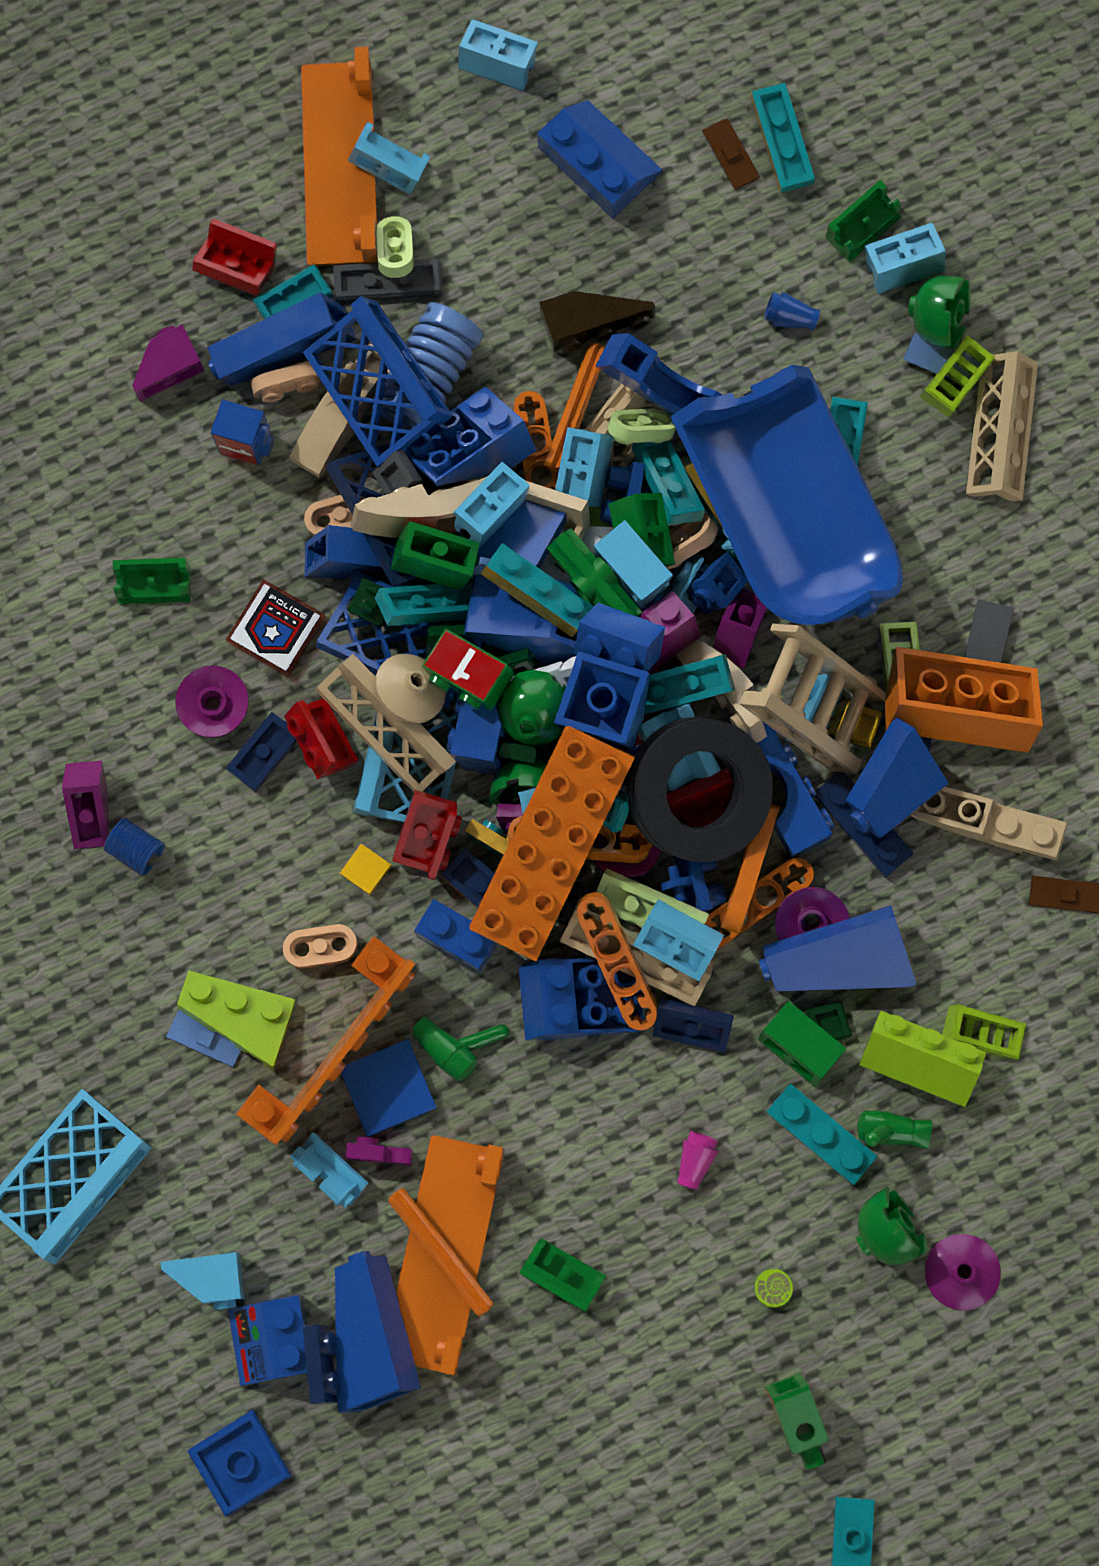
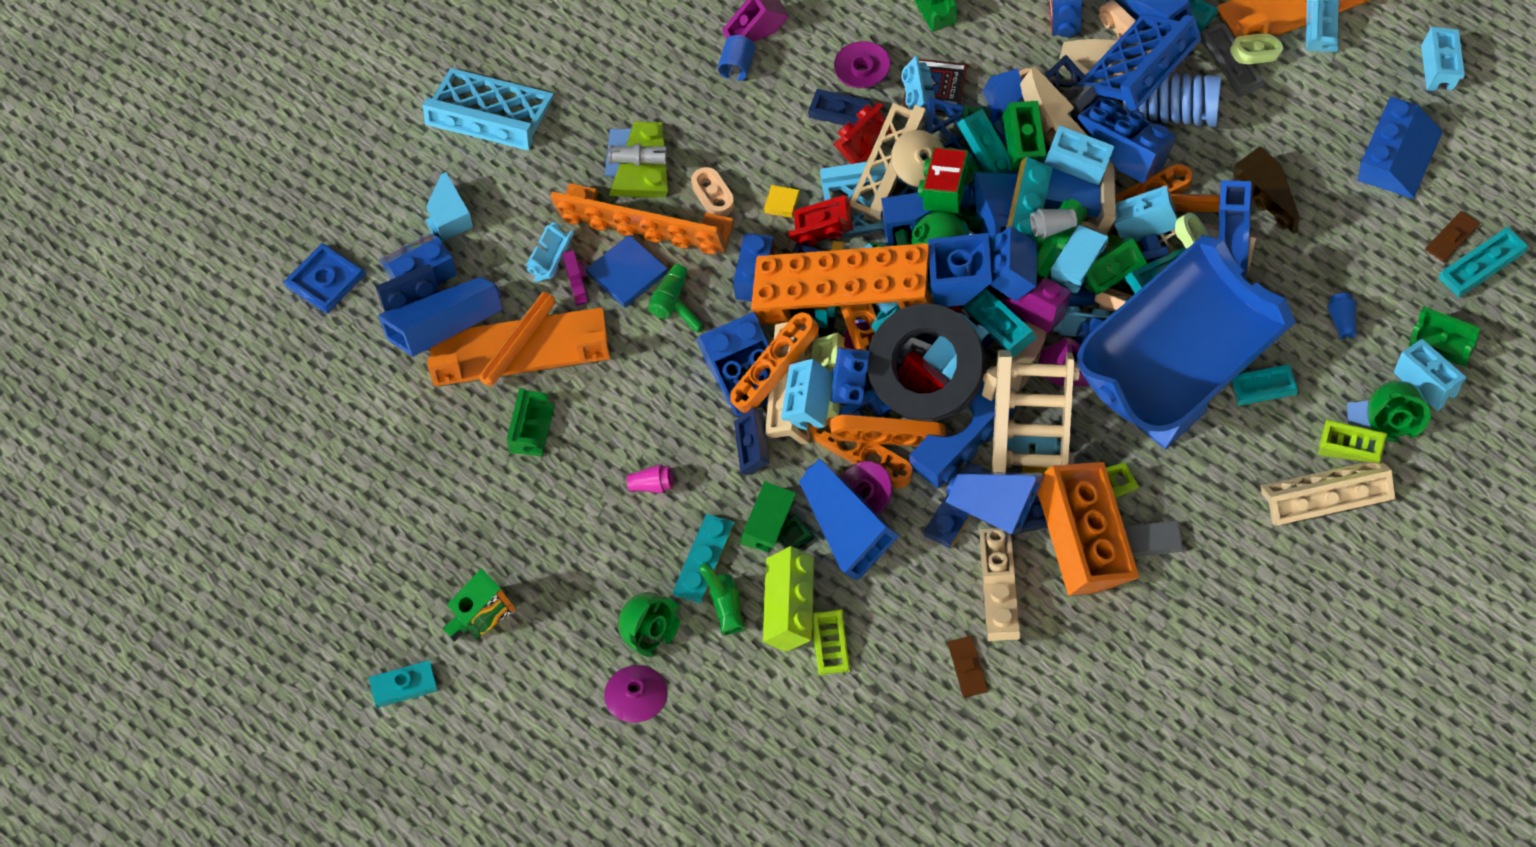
camera: 70 degrees right, 20 degrees down
(240, 1017) = (637, 154): none -> light grey pin
(266, 647) = (916, 78): none -> medium azure hinge
(585, 574) = (1052, 221): none -> light grey cone
(679, 881) = (849, 376): none -> blue hips
(773, 1288) = (573, 566): tile -> none

